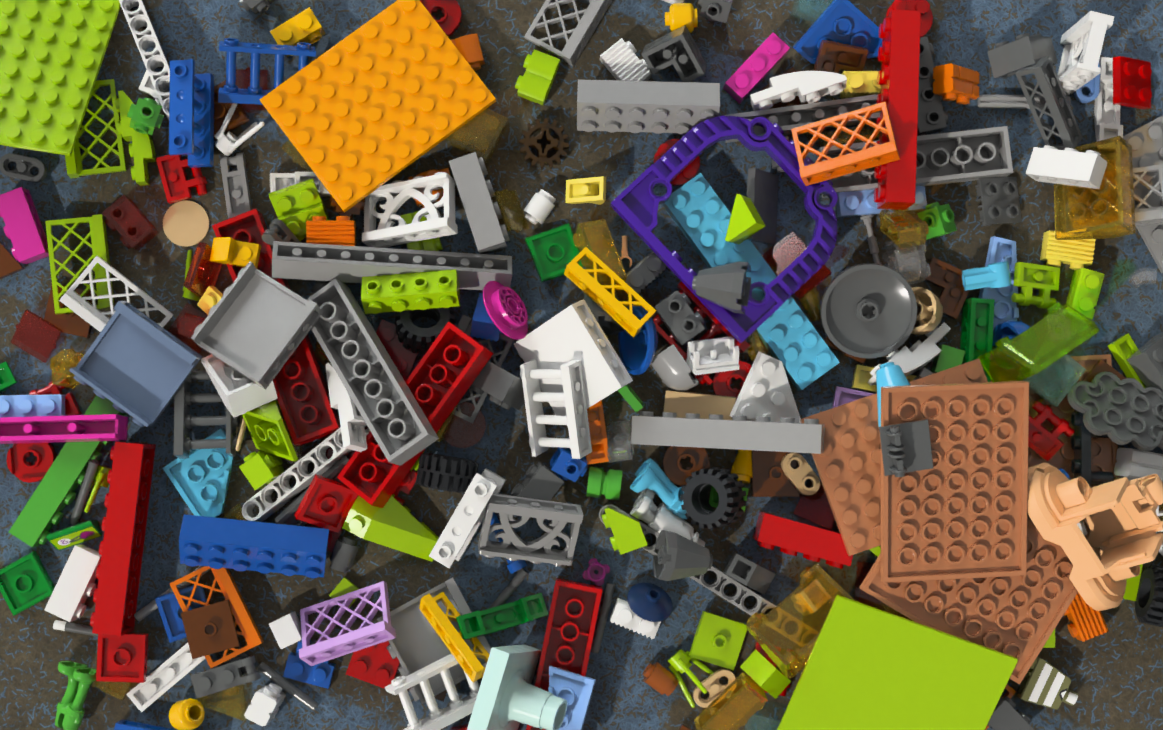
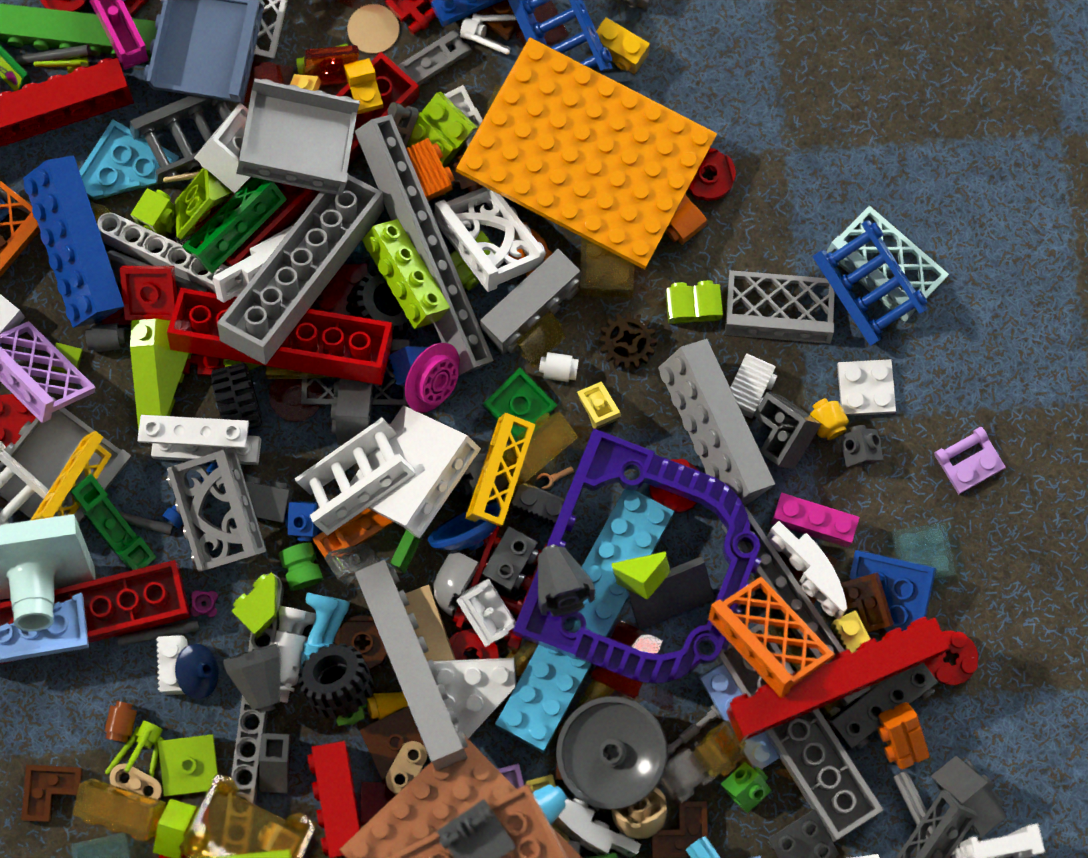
camera: 60 degrees right, 10 degrees down
(306, 407) = (237, 223): none -> green fence

